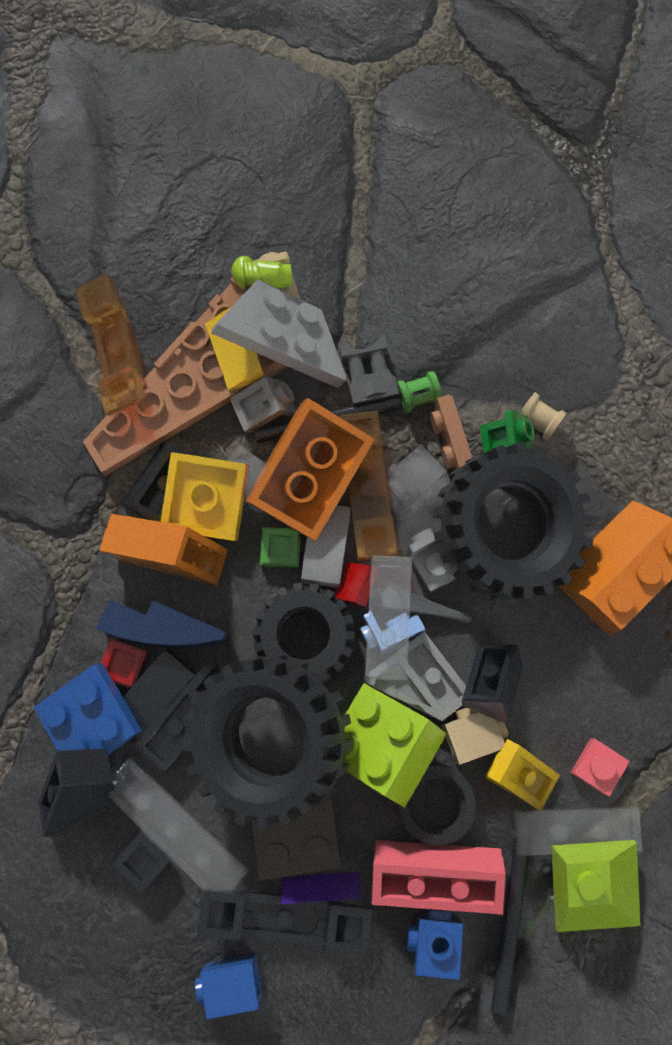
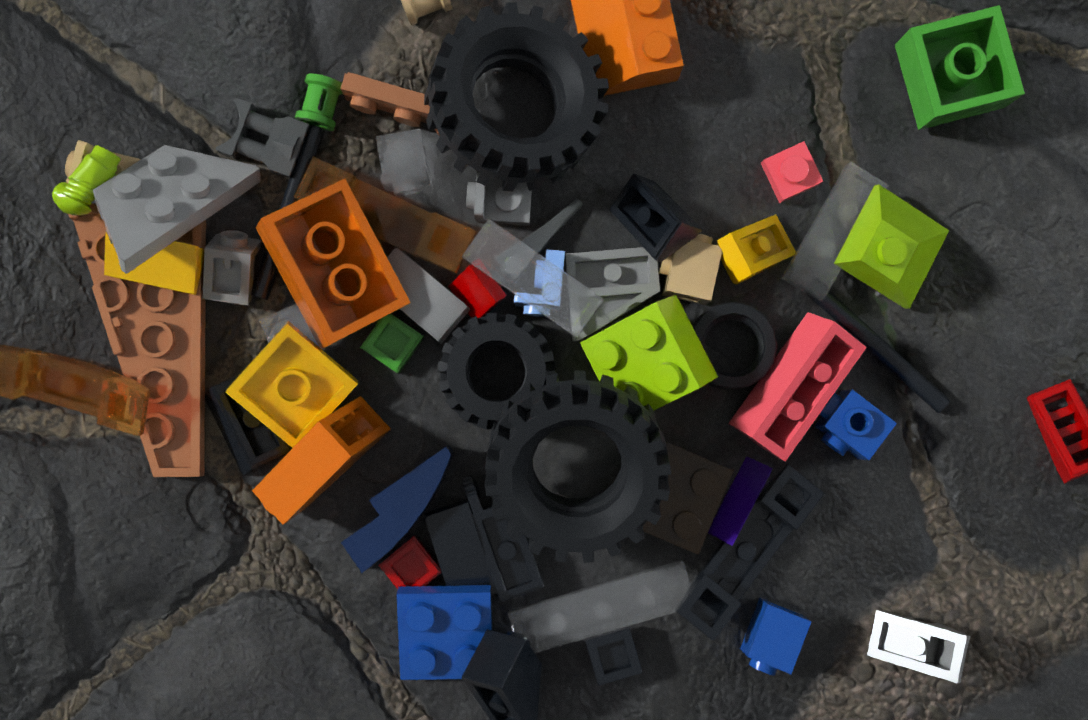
camera: 65 degrees left, 10 degrees up
(507, 431) = (421, 43): green bracket -> none

